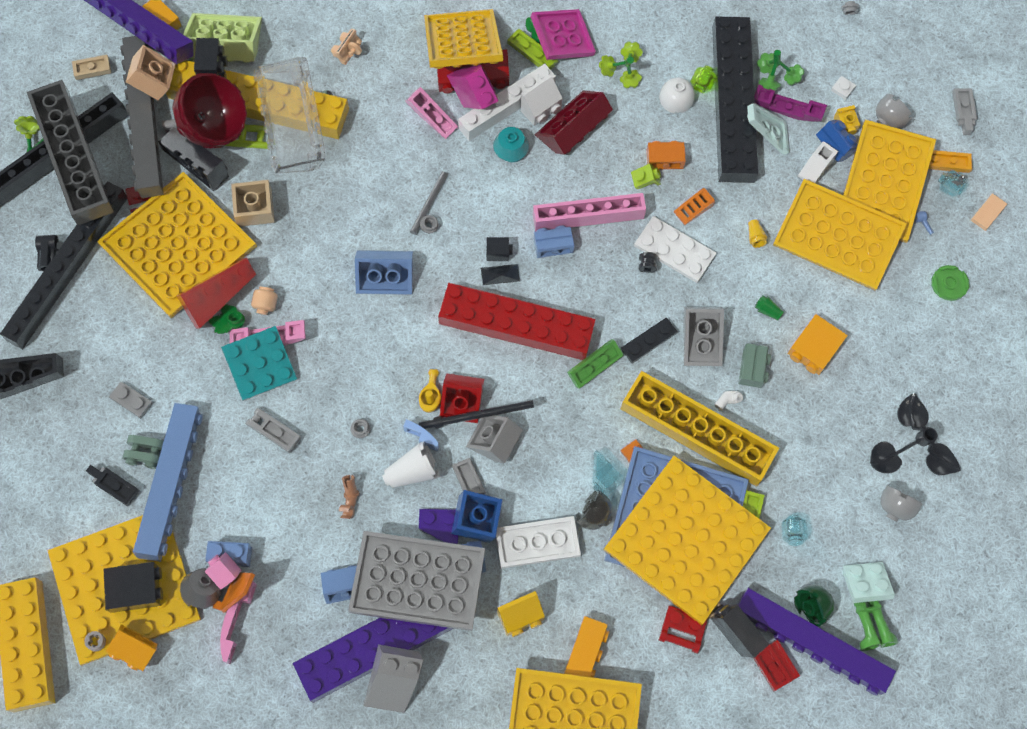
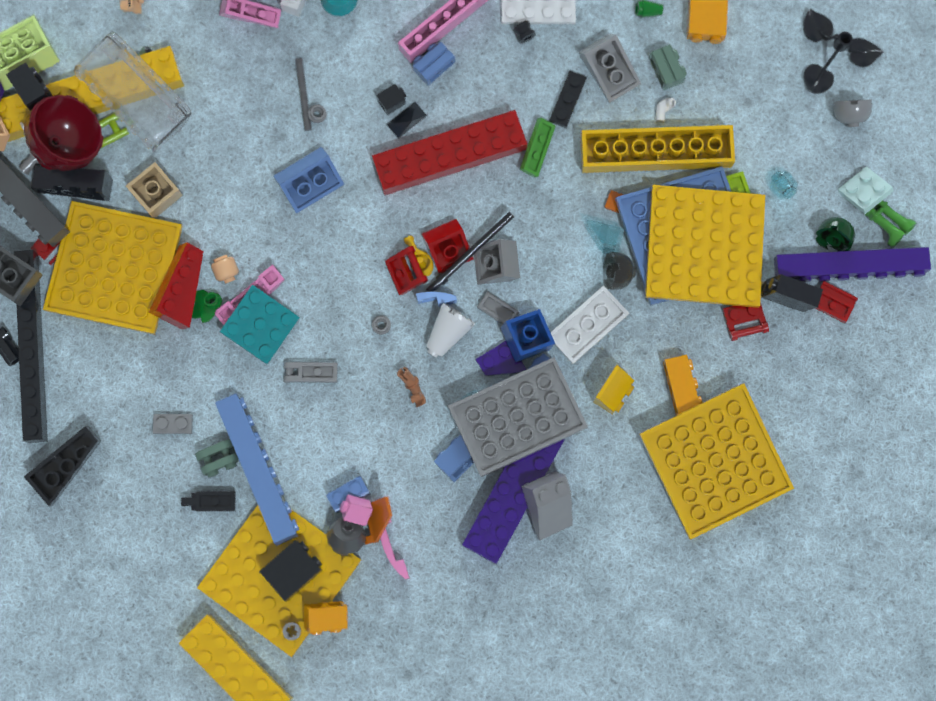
camera: 30 degrees left, 10 degrees up
(407, 394) = (401, 272): none -> red plate

